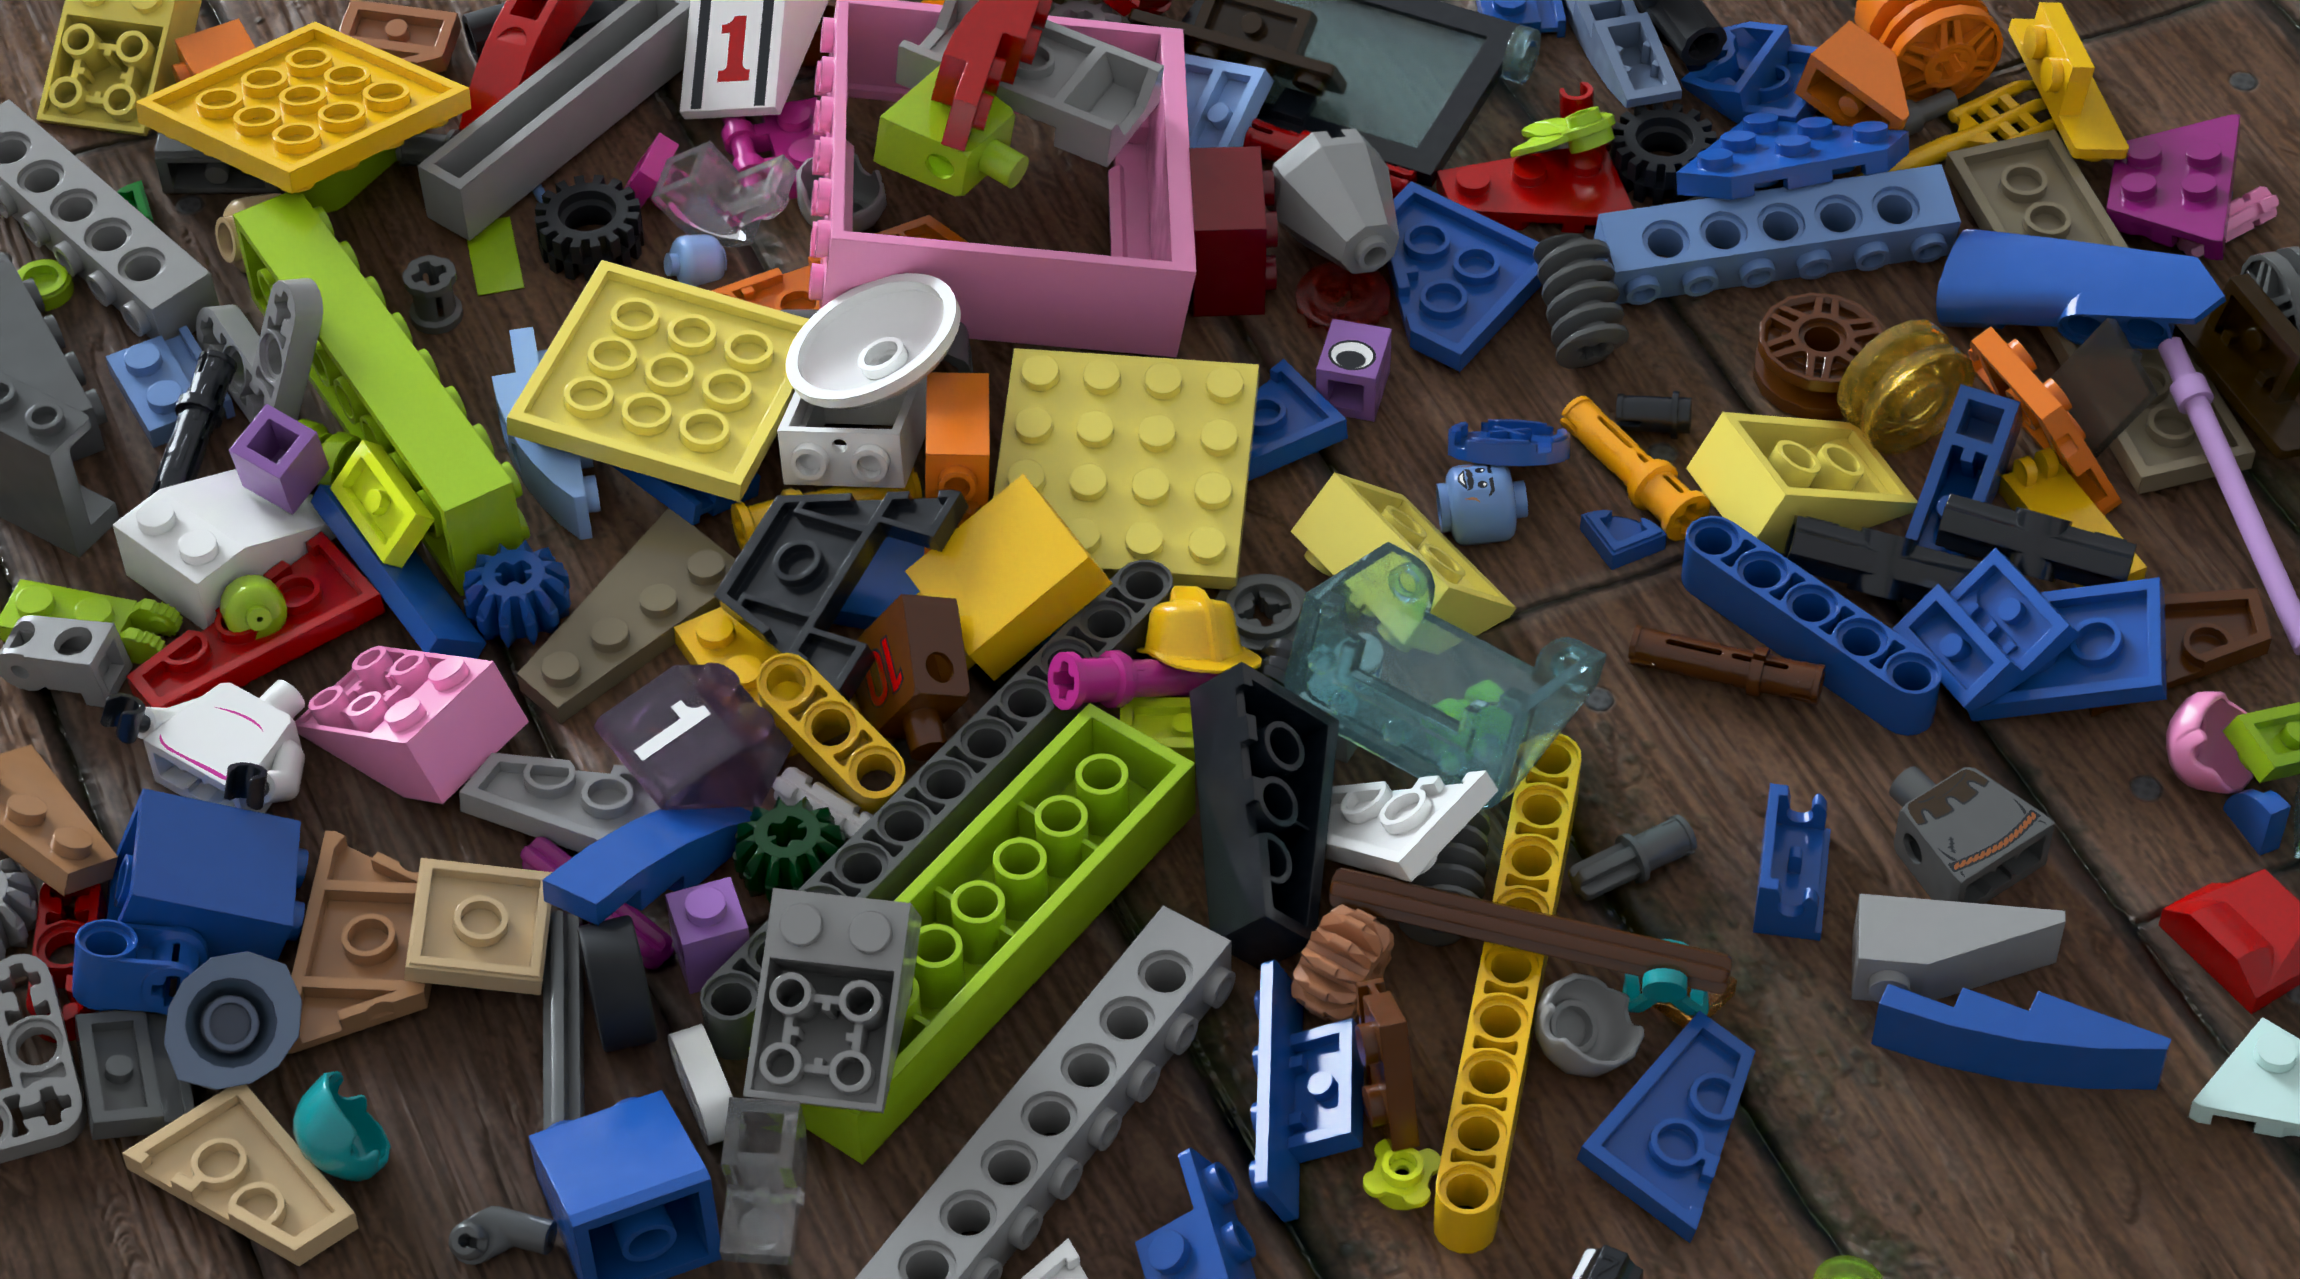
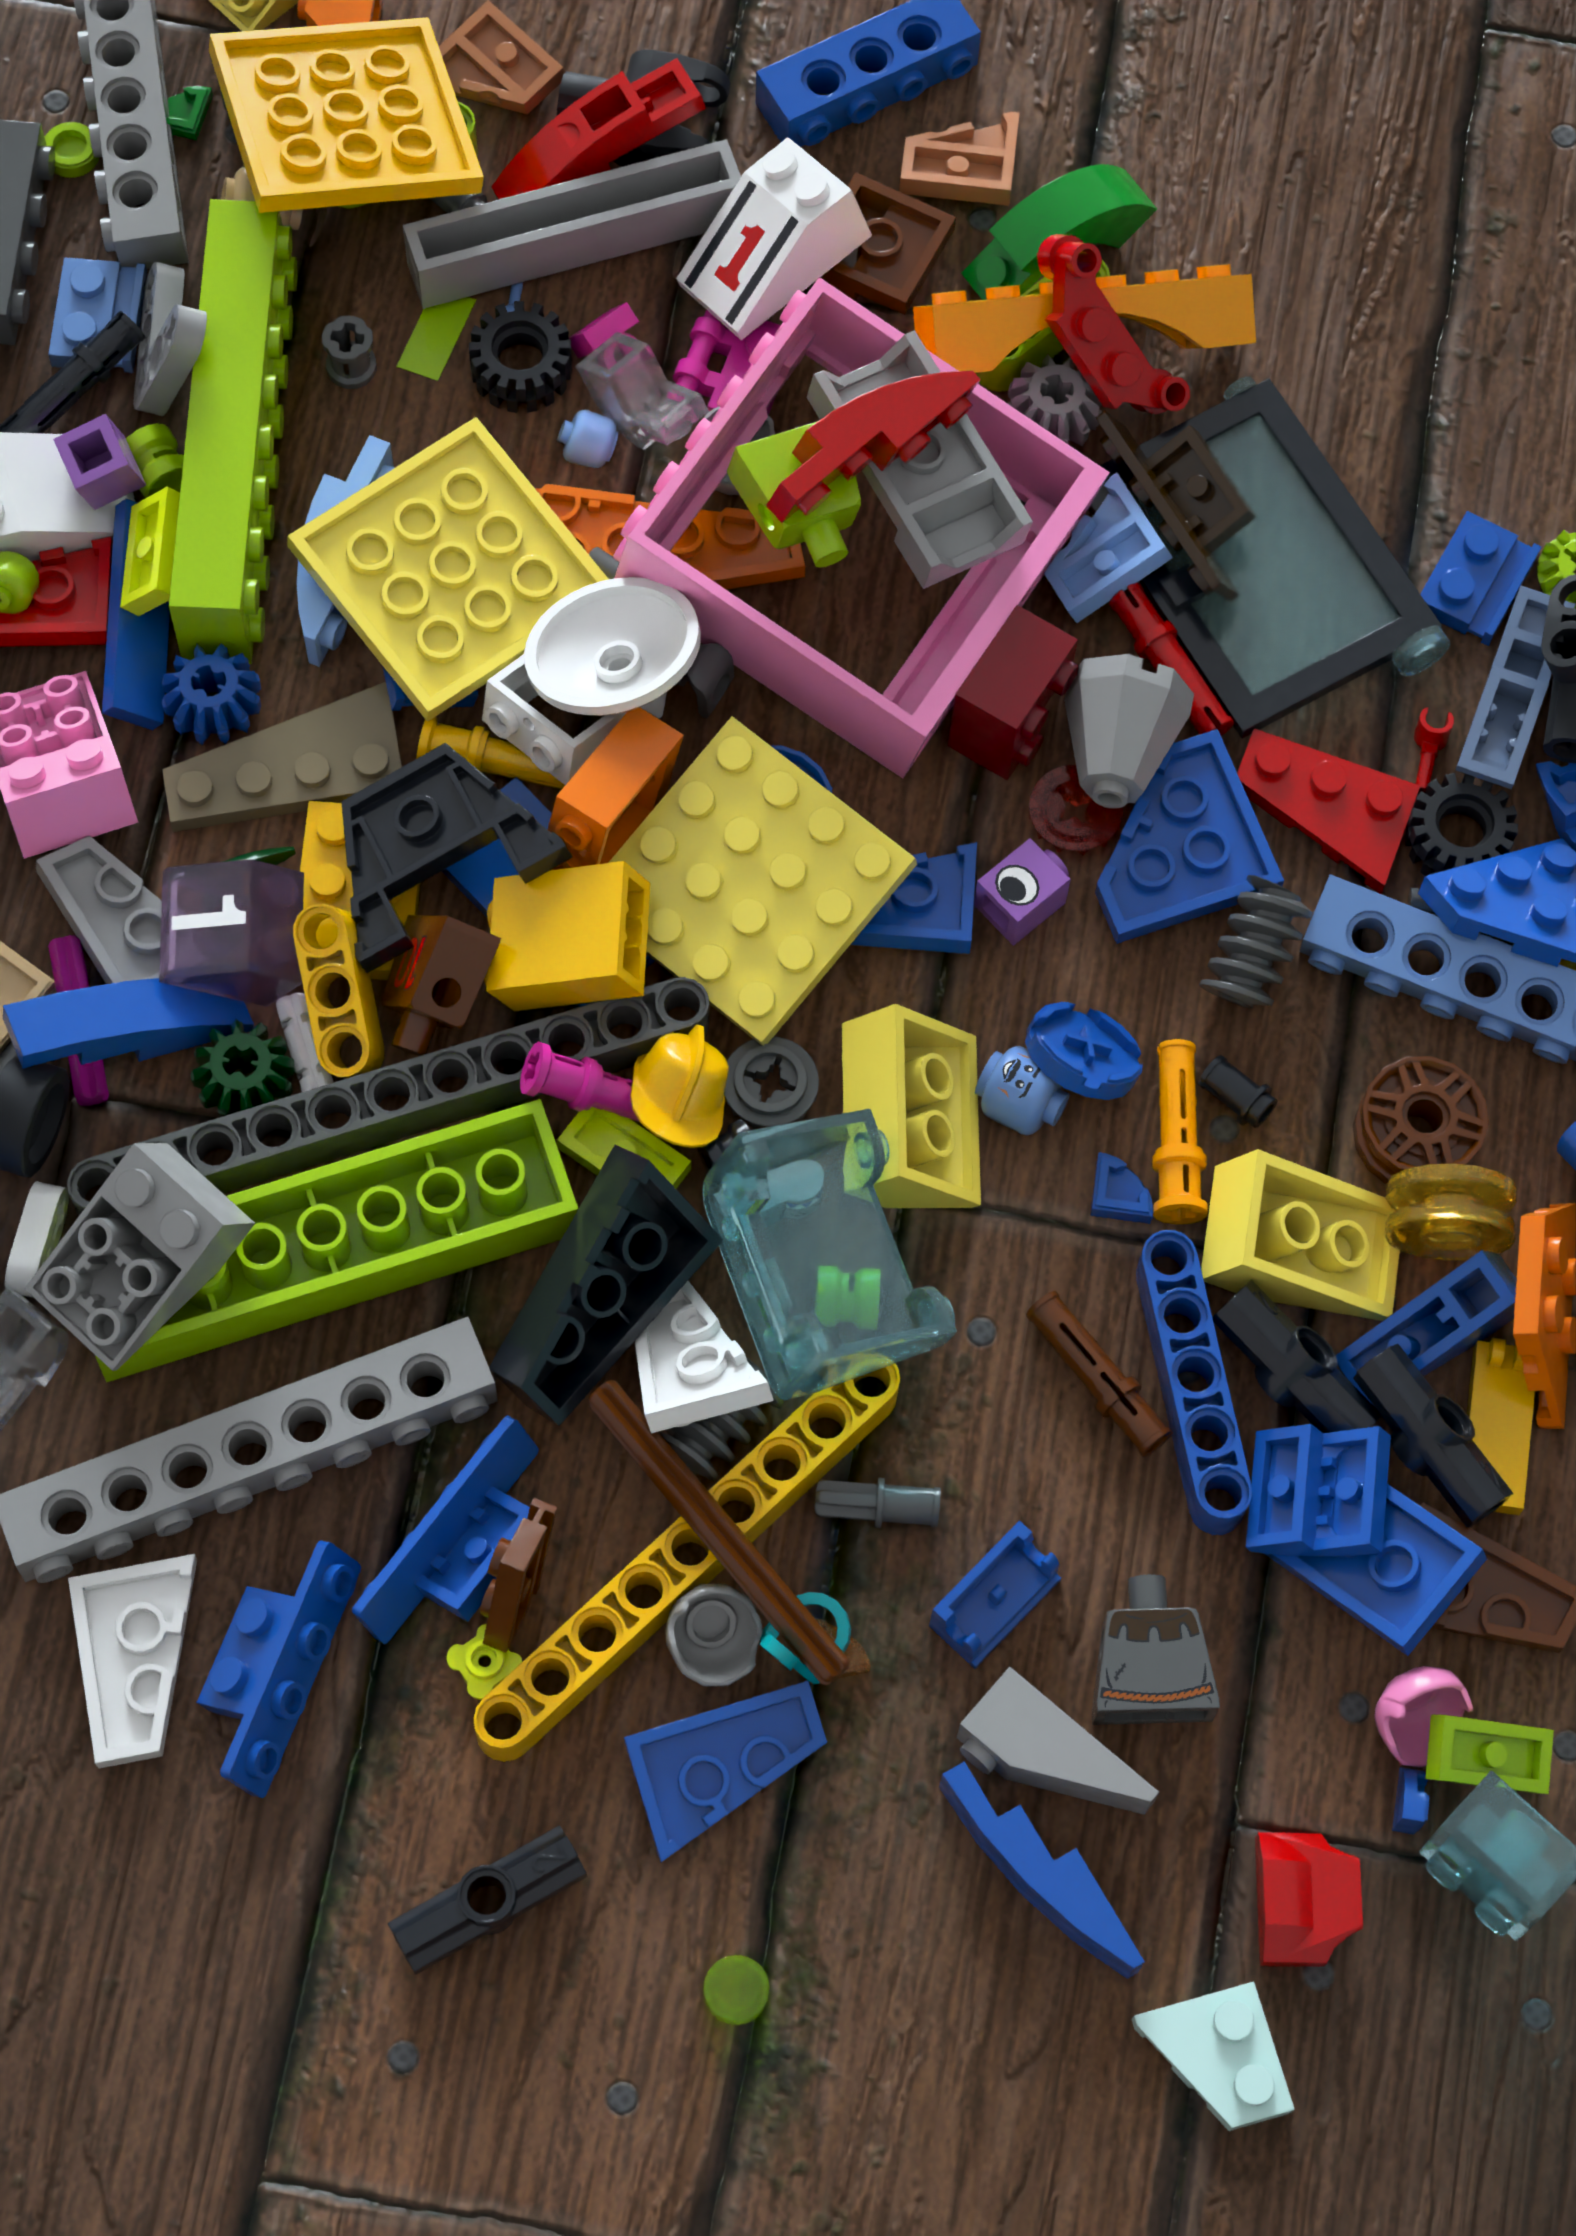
camera: 30 degrees right, 20 degrees up
(705, 928) = (127, 1107): medium lavender brick -> none
(1342, 951) = (566, 1457): nougat gear -> none
(1580, 130) = (1382, 759): lime plate -> none

